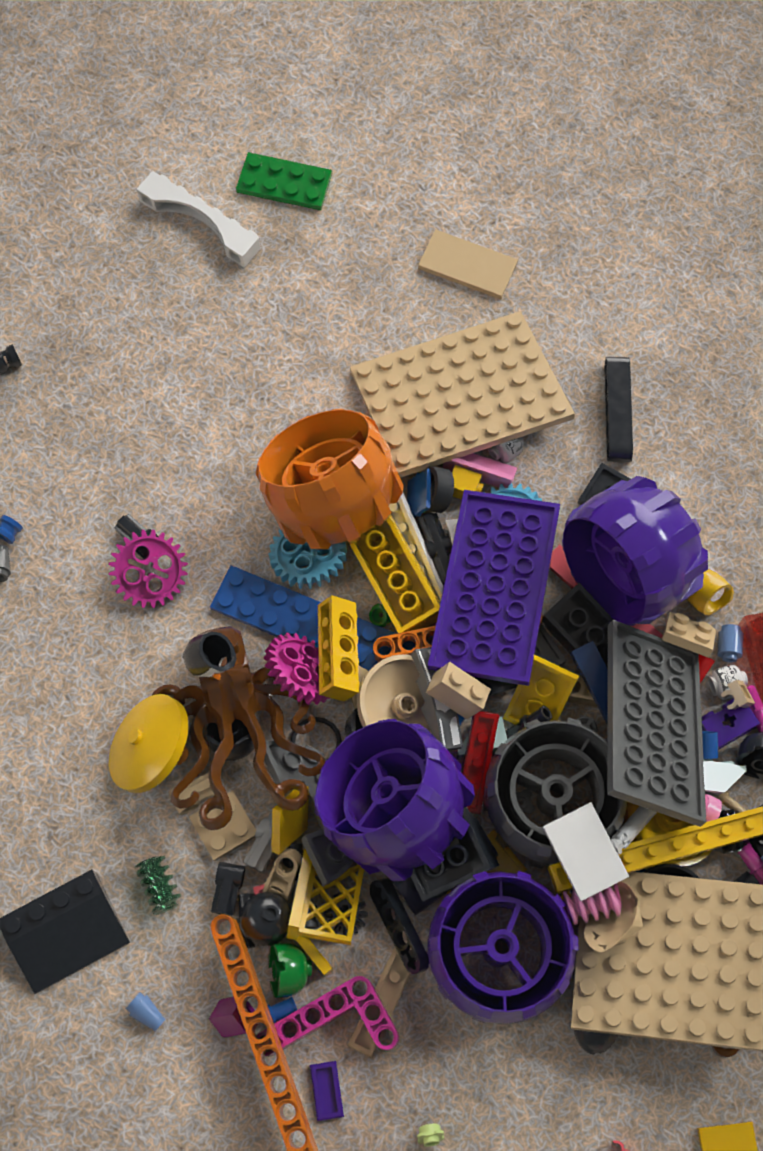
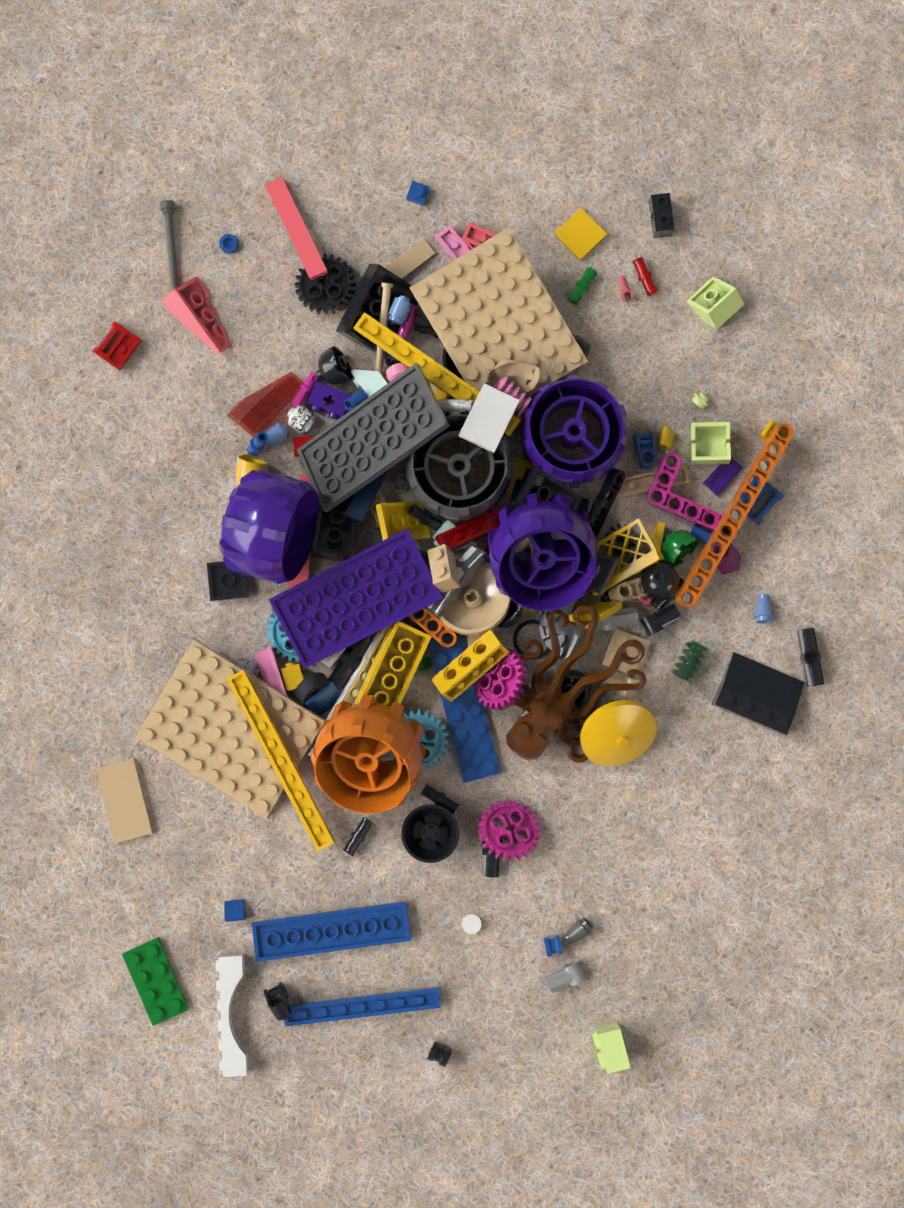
camera: 130 degrees left, 15 degrees up
(38, 1012) = (808, 644): none -> black piece
(94, 474) = (471, 923): none -> white tile
(107, 327) = (363, 1006): none -> blue plate
(176, 259) = (278, 1001): none -> black piece
(197, 350) = (331, 931): none -> blue plate
(205, 654) = (547, 733): black piece -> none
(208, 480) = (428, 847): none -> black piece
(234, 531) = (439, 799): none -> black pin
(252, 1115) = (776, 495): none -> blue plate
(262, 430) = (358, 836): none -> black pin
(288, 283) = (234, 910): none -> blue slope
(372, 1101) = (709, 443): none -> yellowish green piece
(395, 408) = (281, 760): none -> yellow plate
(416, 1059) = (666, 438): none -> yellow slope
(425, 1025) = (645, 445): none -> blue piece
(618, 409) = (161, 618): black beam -> none
(665, 1104) = (582, 286): none -> green pin
(689, 634) = (290, 459): tan plate -> none
(738, 618) = (257, 443): none -> blue pin
(740, 694) = (308, 403): tan tile -> none

